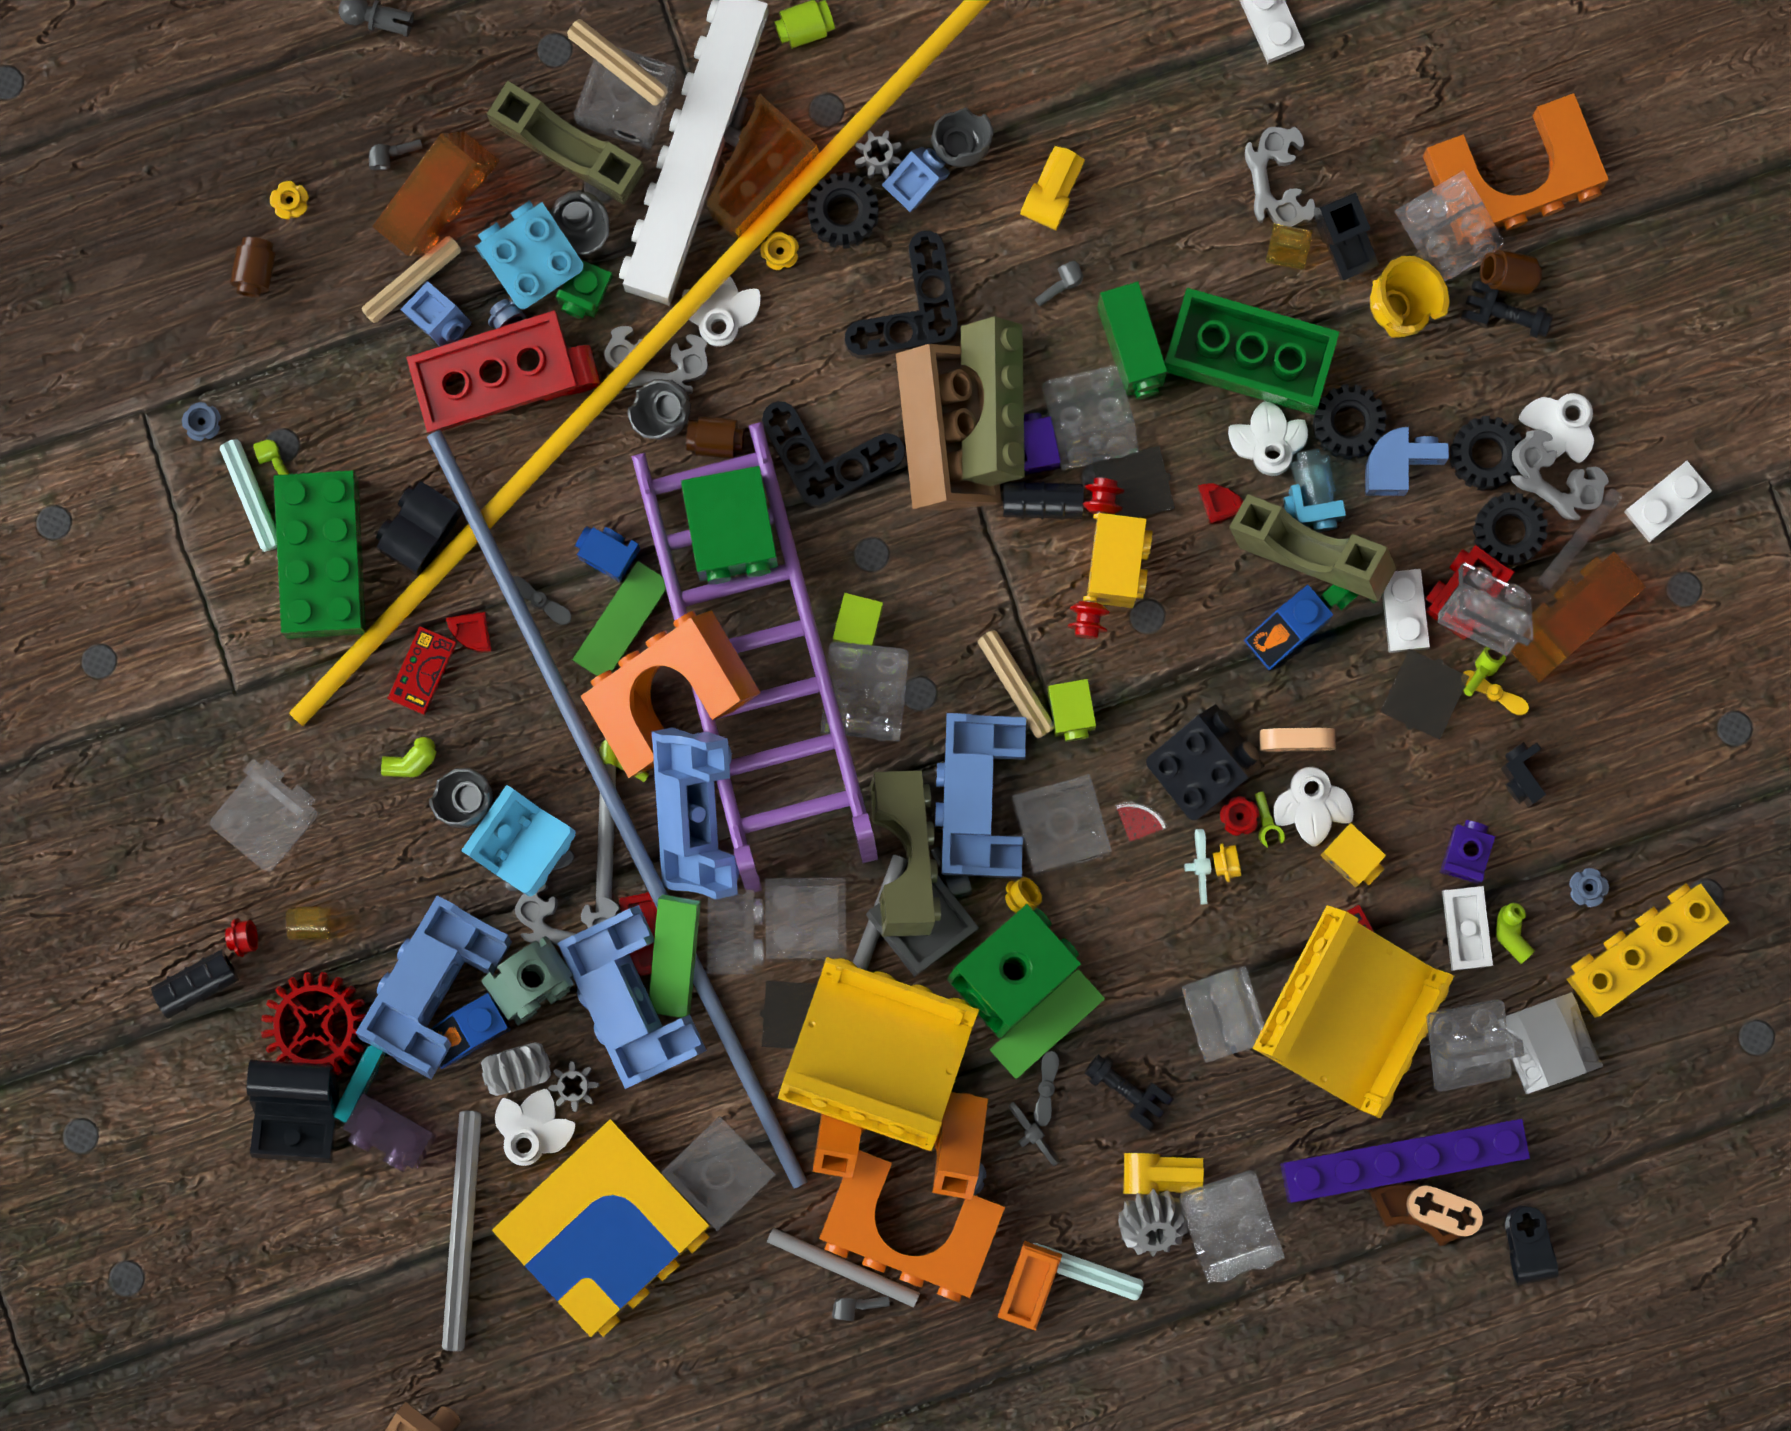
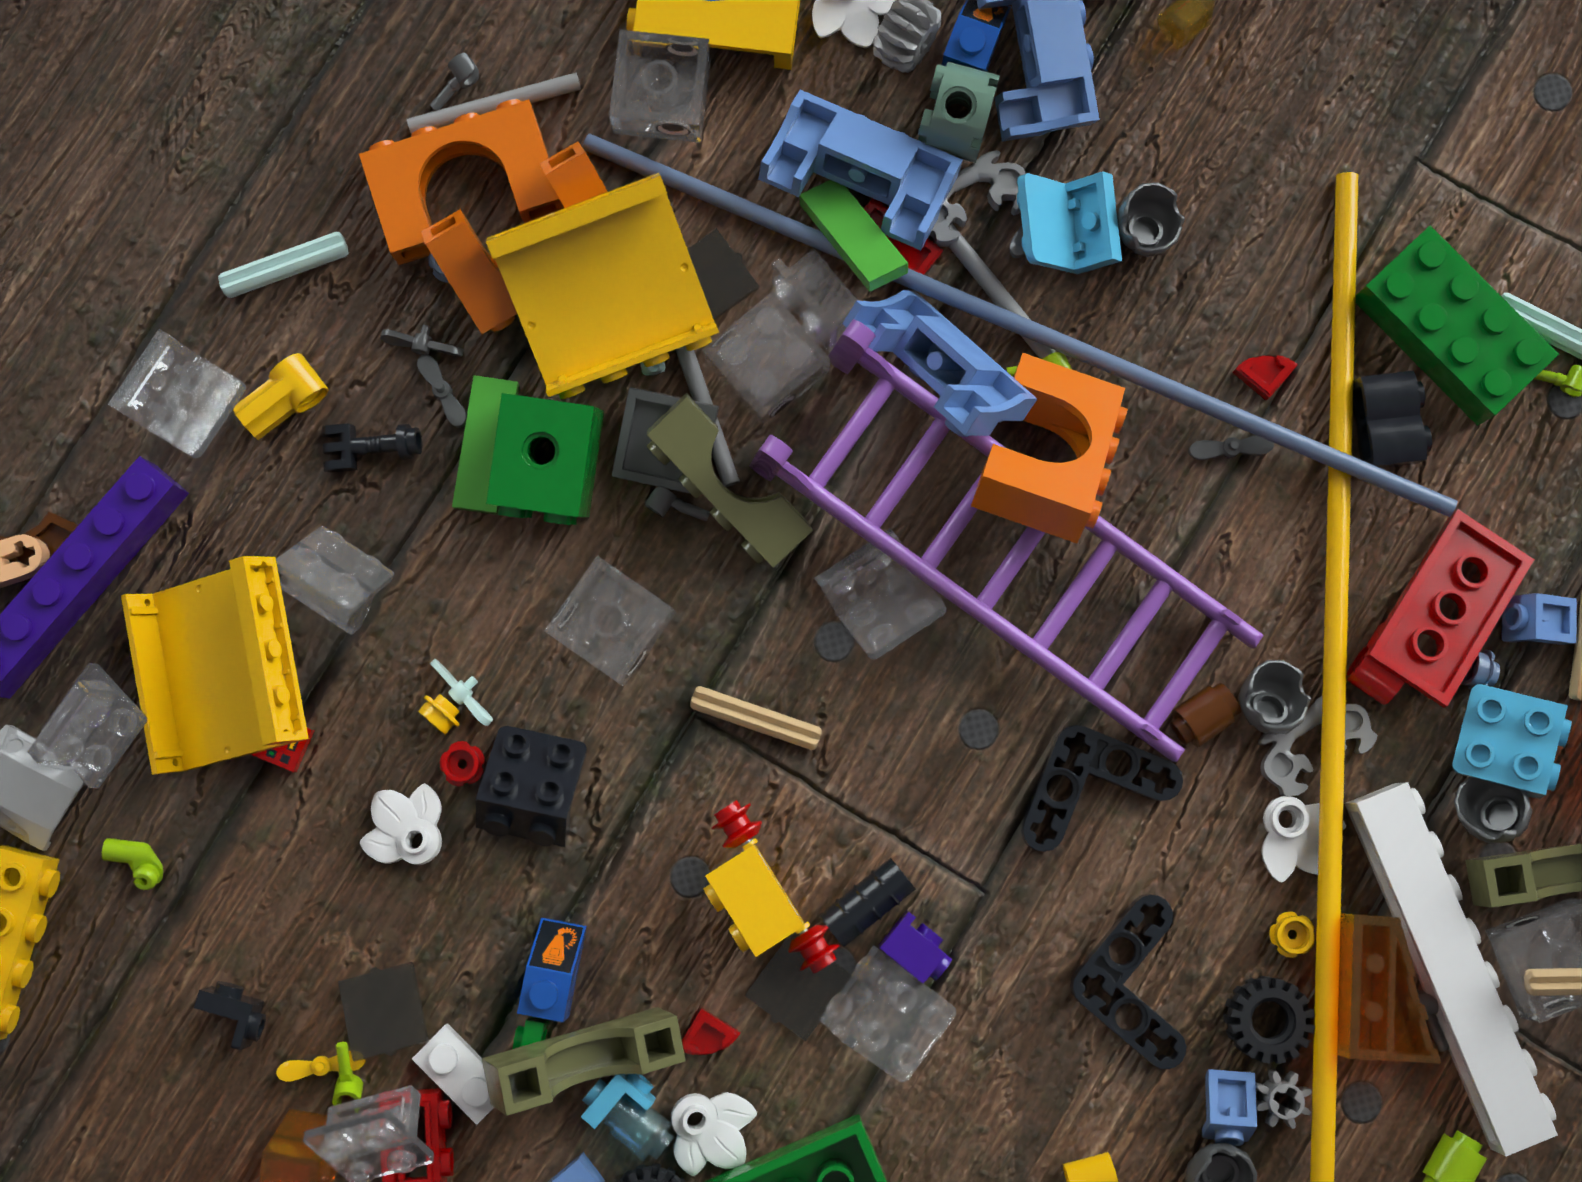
camera: 140 degrees right, 0 degrees up
(264, 815) = (1302, 73): clear bracket -> none
(413, 763) = (1216, 218): lime arm -> none
(422, 670) = (1277, 304): red tile -> none
(561, 1087) = (851, 50): light grey gear -> none
(584, 291) = (1431, 751): green bracket -> none
(606, 552) = (1210, 534): blue brick -> none
(621, 620) = (1145, 486): bright green tile -> none
(729, 525) = (1126, 639): green brick -> none
(858, 620) = (939, 653): lime brick -> none
(939, 411) = (1007, 898): medium nougat slope -> none
(968, 787) = (707, 570): medium blue bracket -> none
(996, 444) = (950, 915): olive arch -> none
(1022, 893) = (595, 536): yellow plate -> none
(1029, 1285) = (319, 212): orange tile -> none
(1071, 277) = (1012, 1131): dark grey hand -> none
(1071, 709) = (686, 733): lime brick -> none
(1132, 340) = (908, 1118): green brick -> none
(1139, 820) = (549, 688): clear tile -> none
(1152, 1222) = (252, 345): light grey gear -> none
(1266, 819) = (431, 777): lime hand -> none
(1297, 739) = (463, 874): light nougat beam -> none
(1354, 856) = (329, 810): yellow brick -> none
(1460, 865) = (239, 883): dark purple brick -> none
(1467, 928) = (178, 830): white plate -> none
(1581, 895) = (109, 953): sand blue plate -> none

